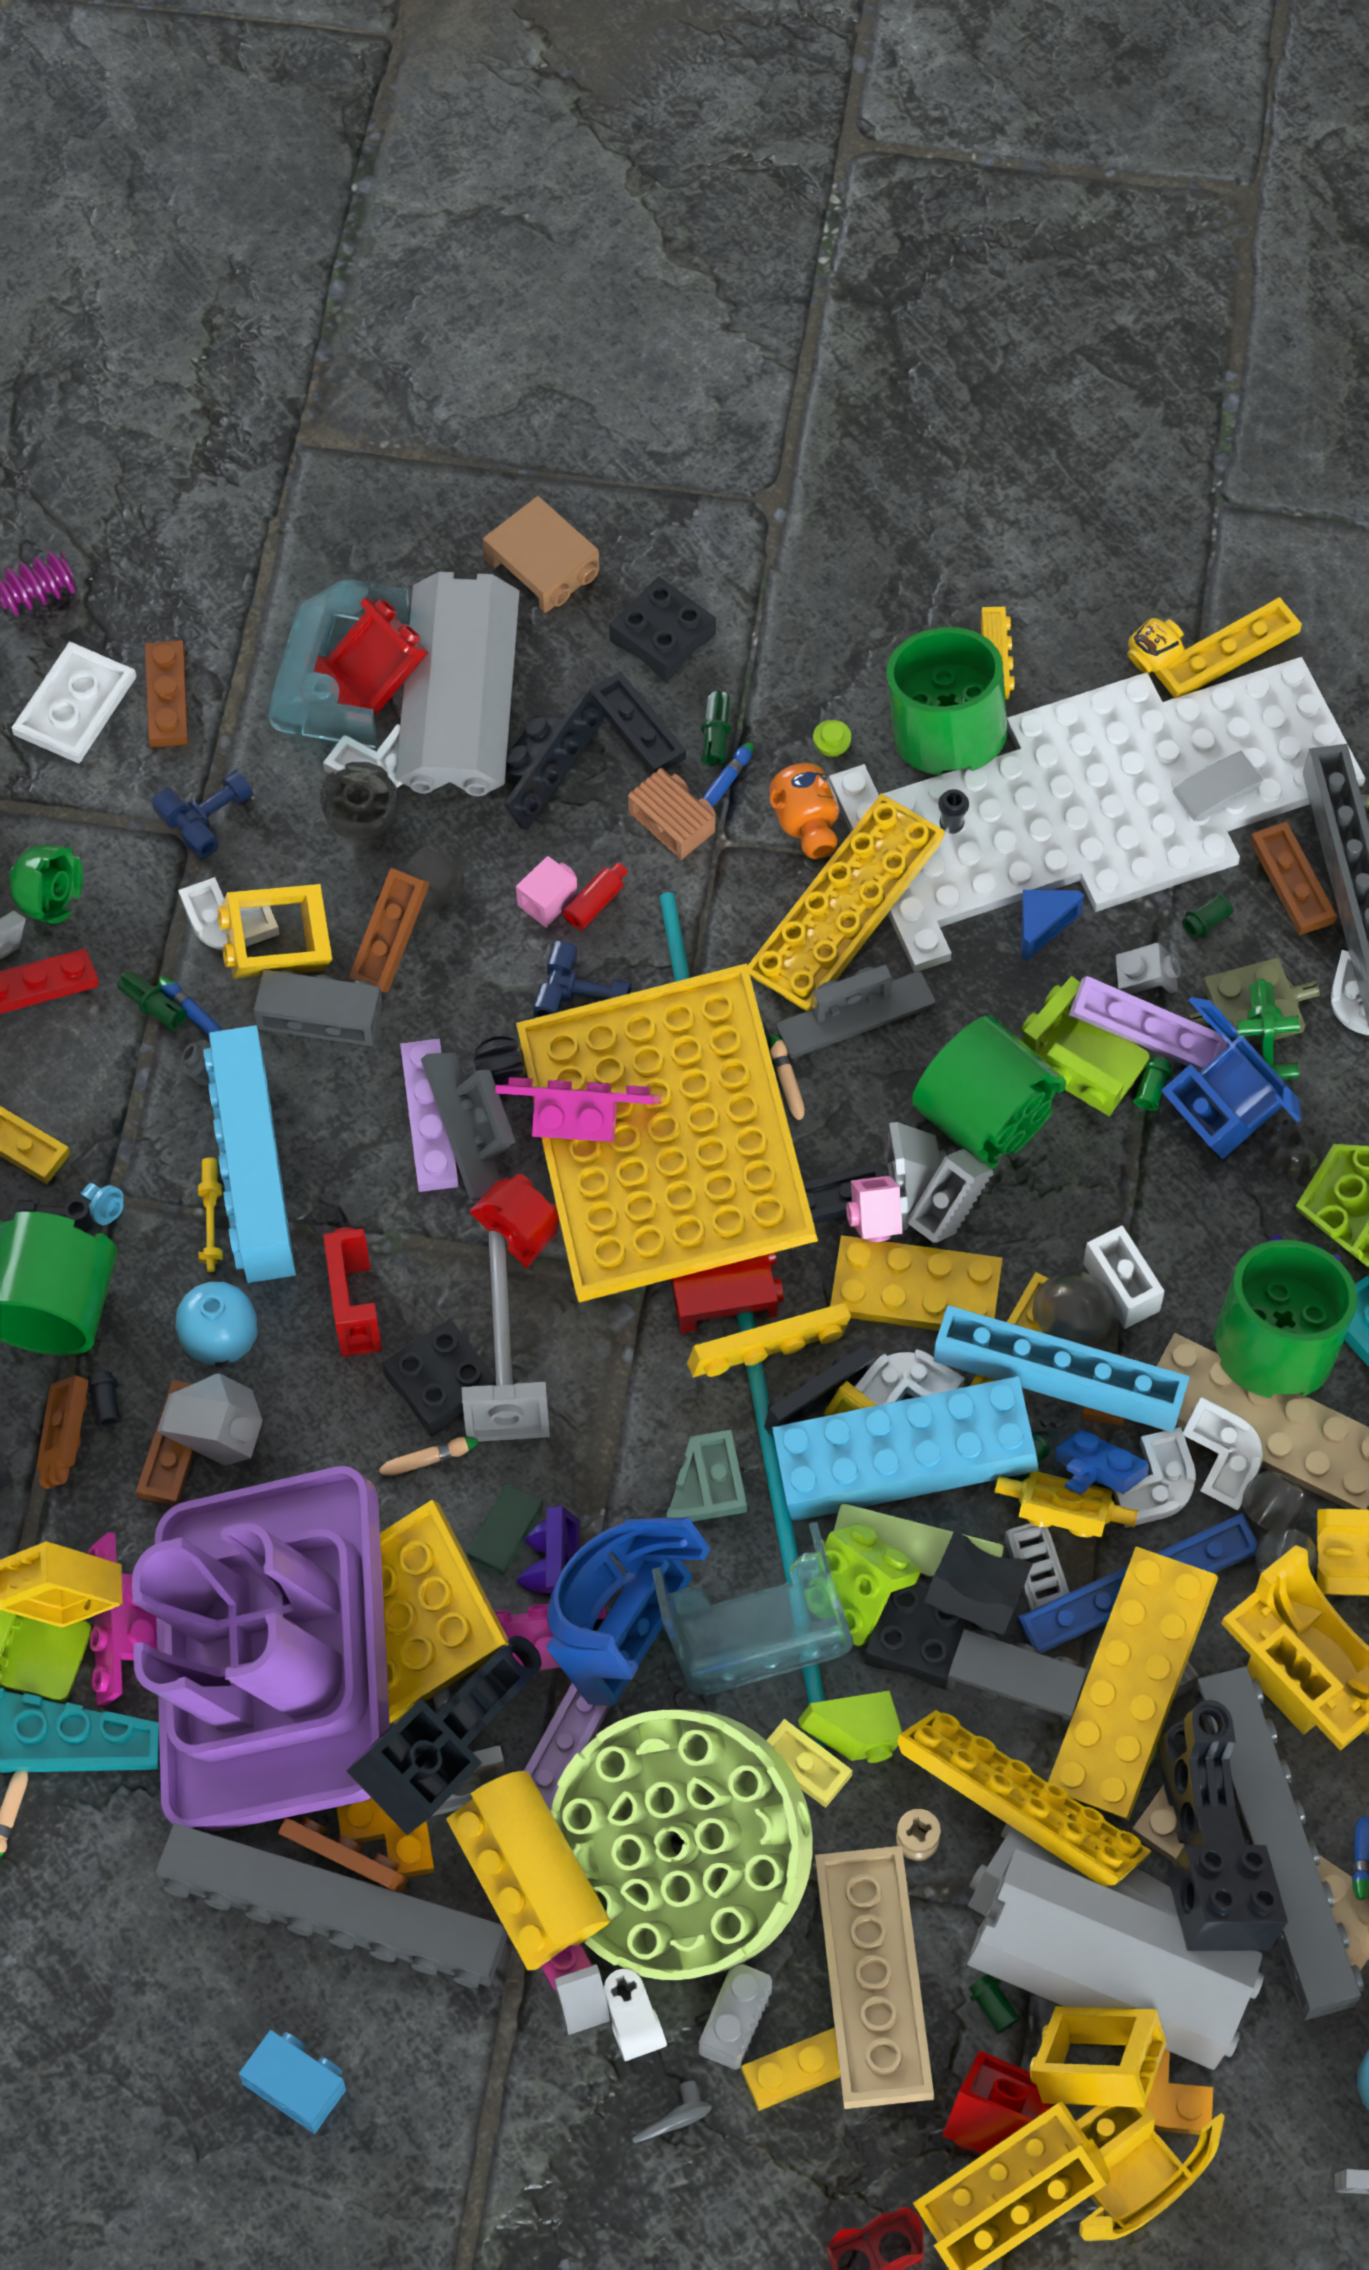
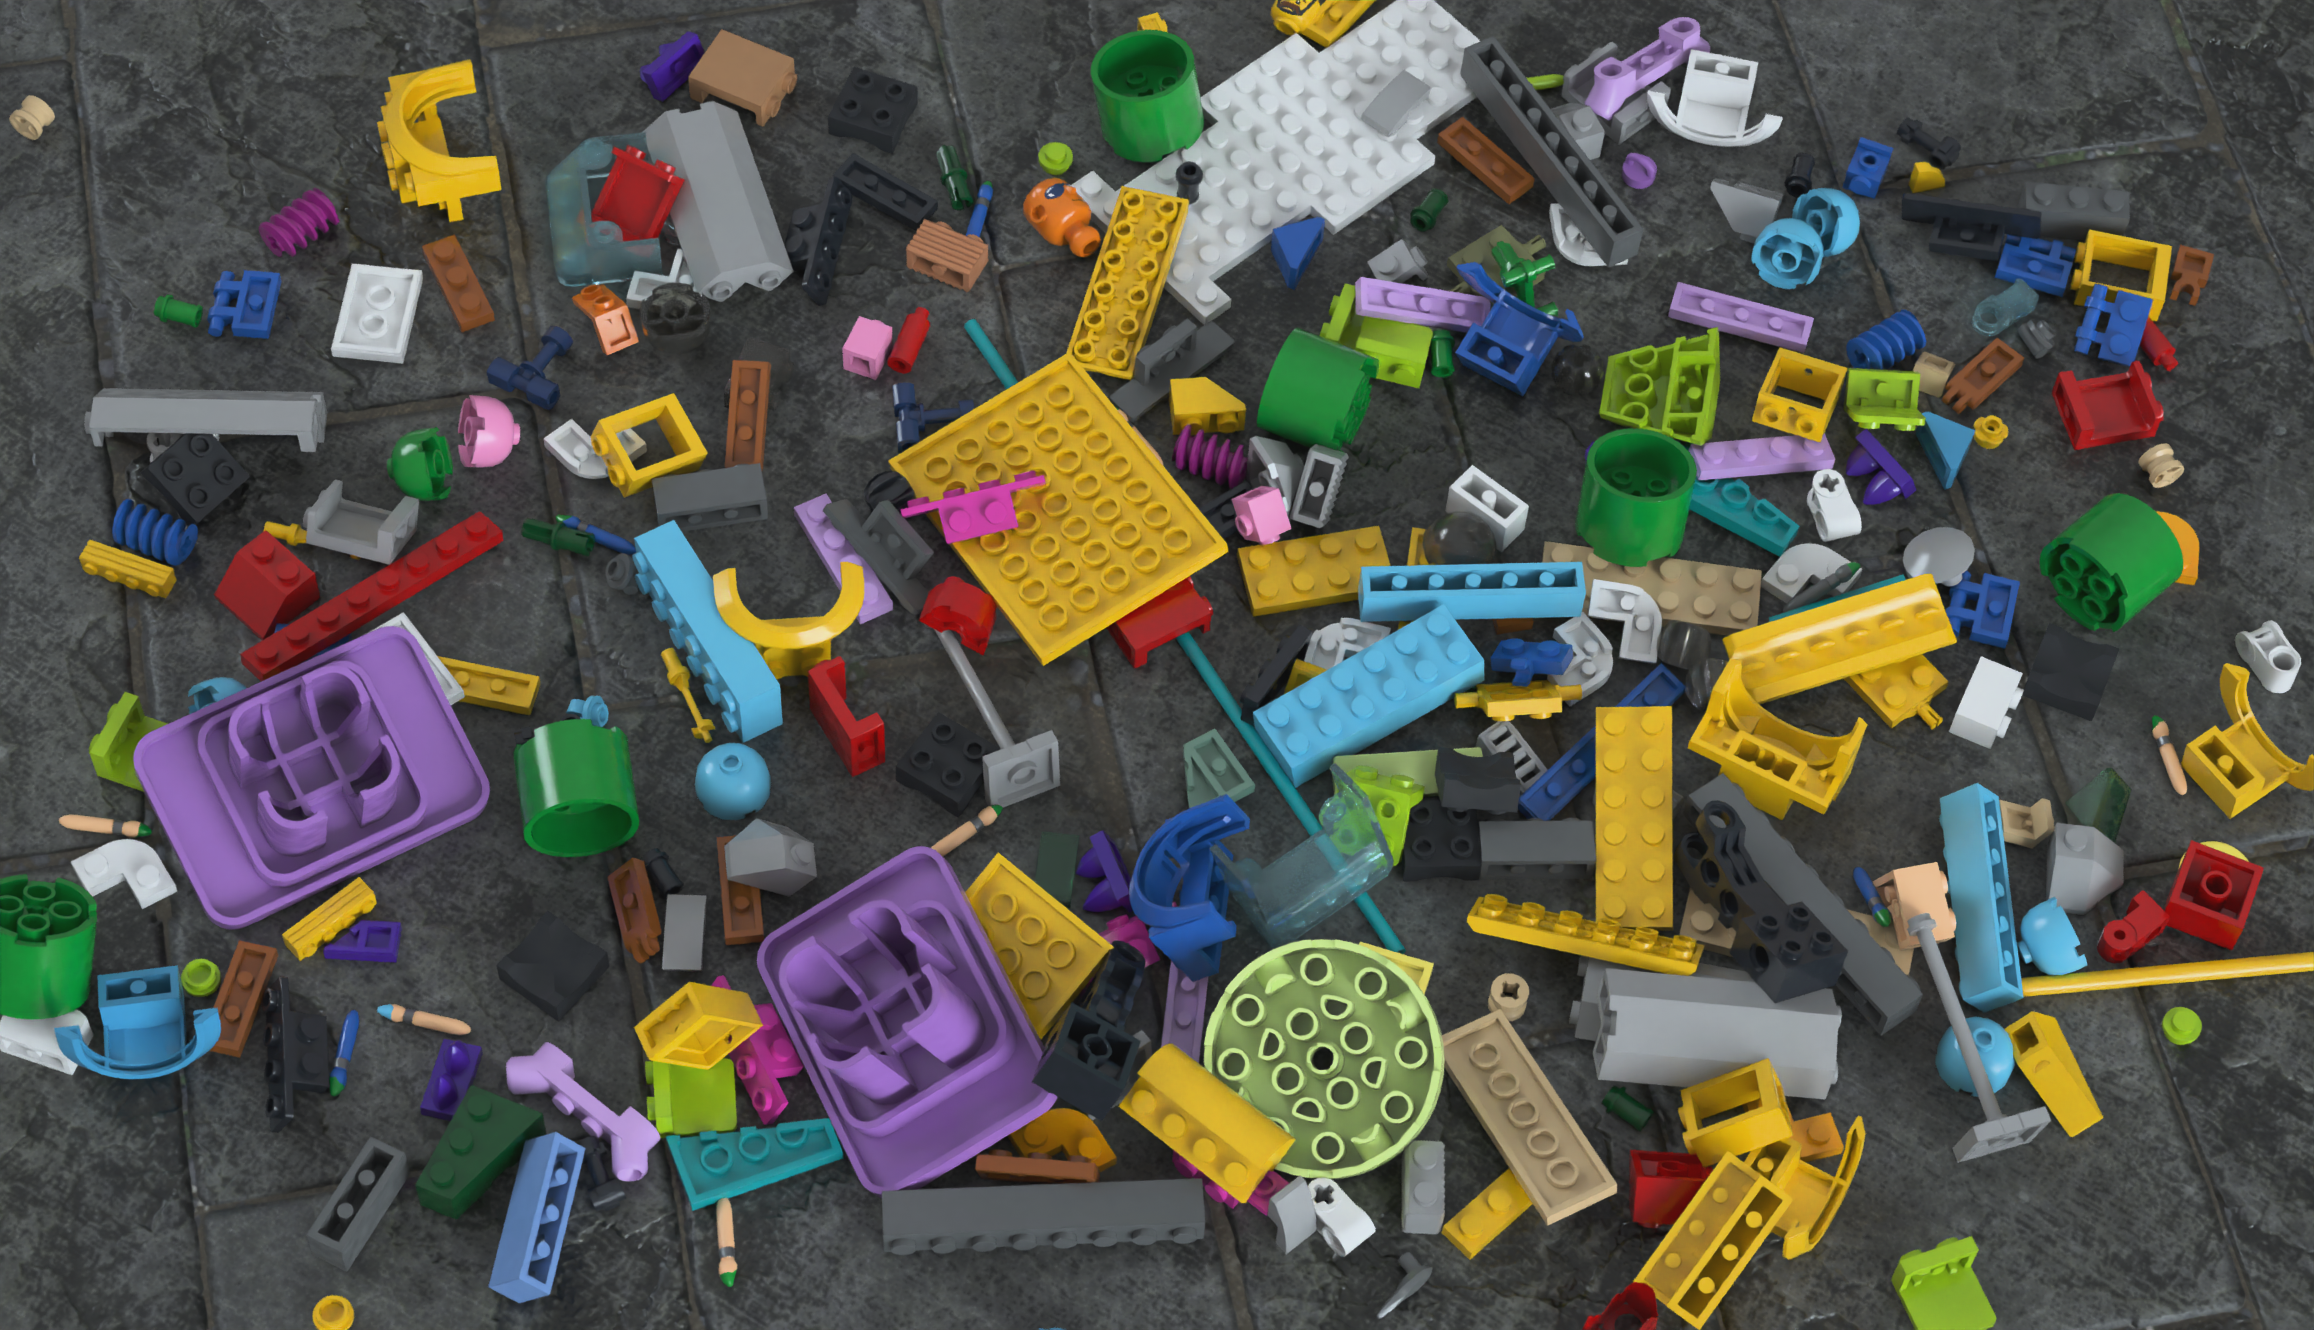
camera: 25 degrees left, 5 degrees down
(99, 1471) = (684, 933): none -> light grey slope
(124, 866) = (487, 432): none -> bright pink cylinder
(181, 542) = (419, 150): none -> yellow piece
(296, 777) = (609, 317): none -> orange bracket
(328, 1192) = (791, 644): none -> yellow piece
(476, 520) = (672, 66): none -> dark purple tile
(758, 1343) = (1209, 651): yellow plate -> none
(851, 1126) = (1210, 458): none -> magenta piece
(855, 1725) = (1422, 927): lime slope -> none
(868, 1066) = (1204, 407): none -> yellow slope

